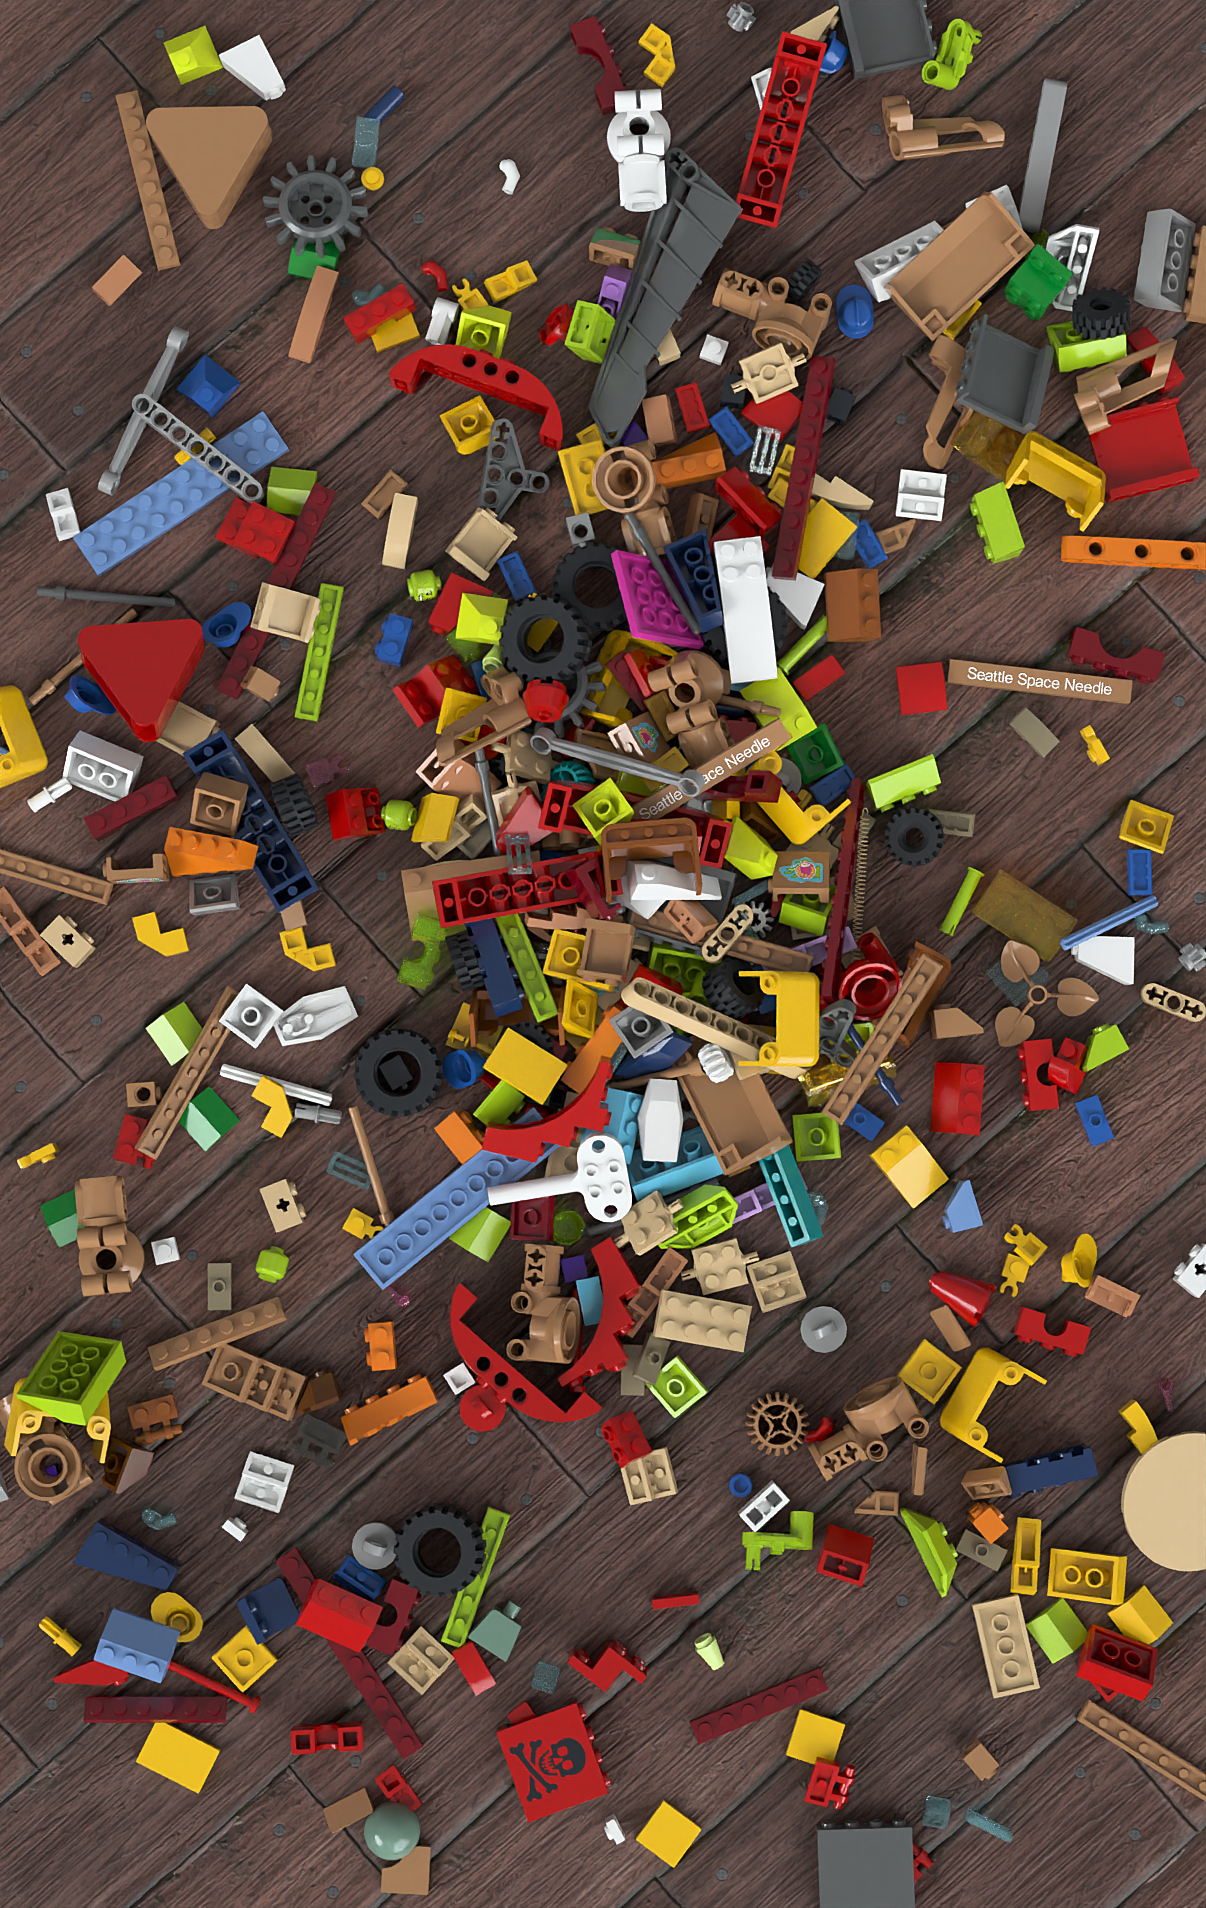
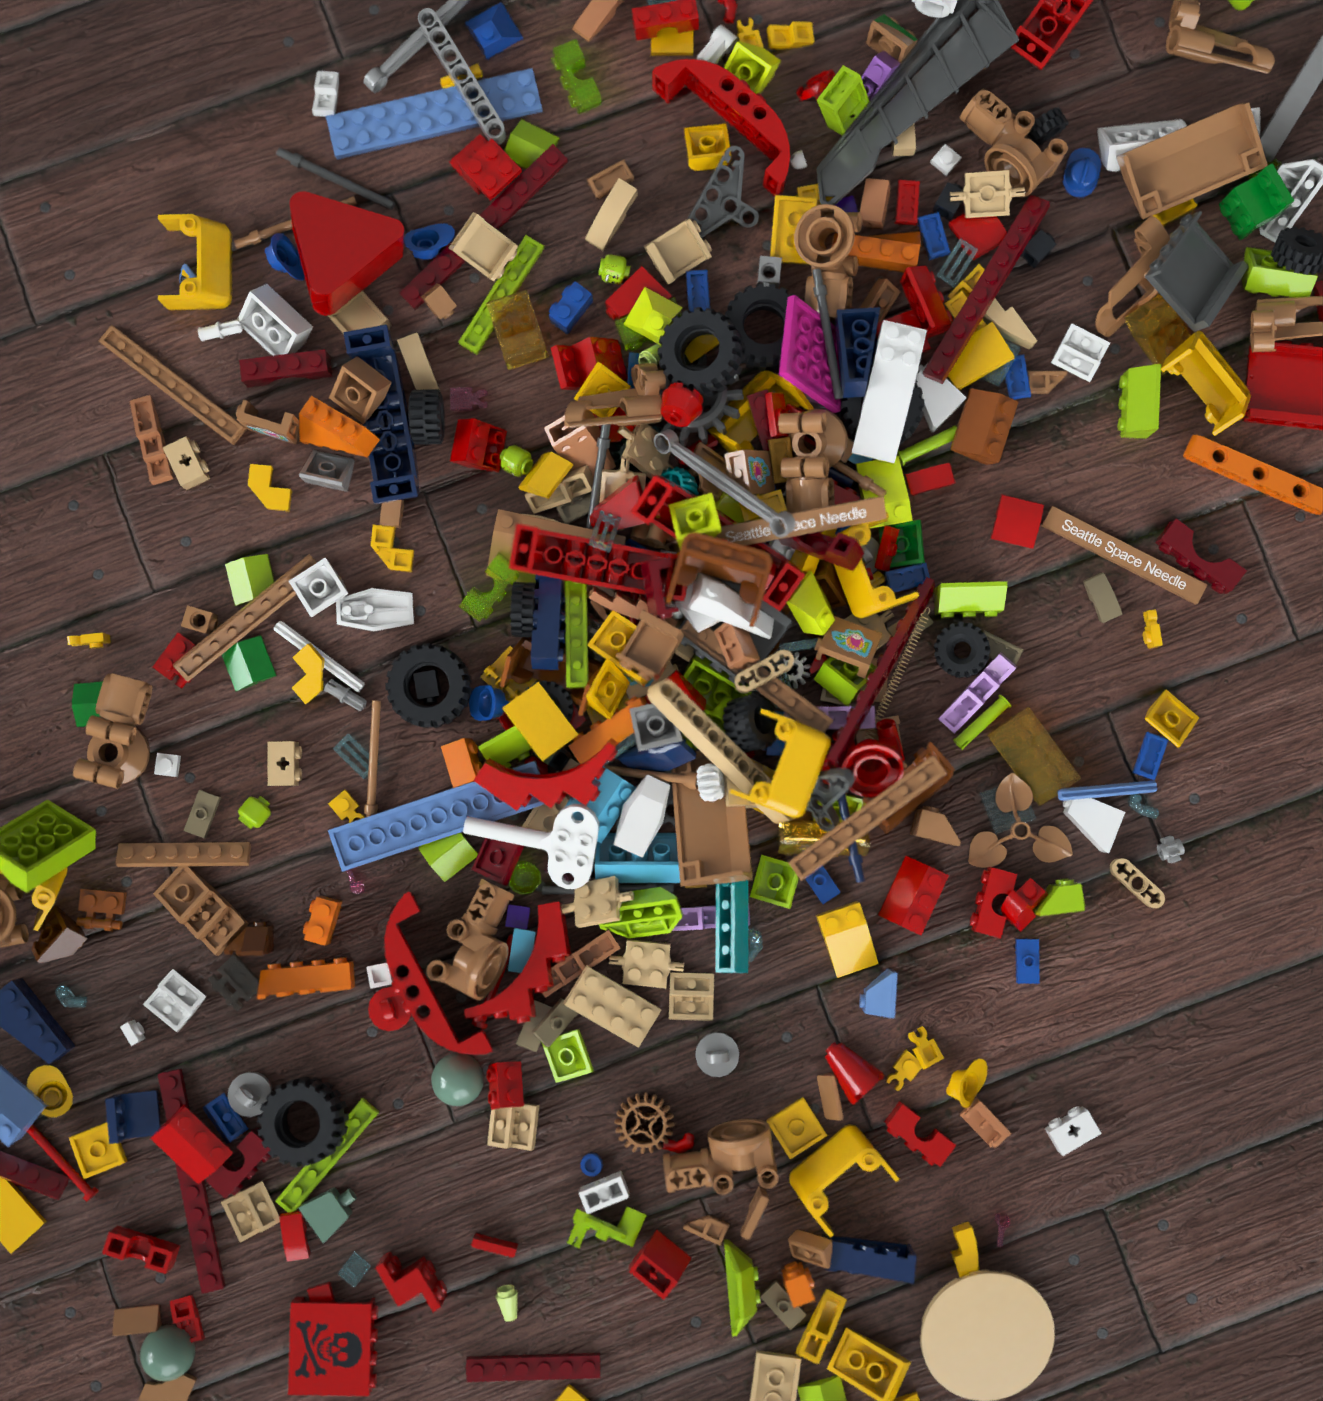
camera: 25 degrees right, 0 degrees up
(324, 419) = (583, 93): none -> clear neon green arch
(350, 682) = (517, 330): none -> clear yellow slope
(566, 405) = (797, 160): none -> white hinge
(575, 1452) = (457, 1079): none -> sand green piece
(802, 764) = (887, 548): none -> red plate
(945, 873) = (977, 692): none -> lavender slope

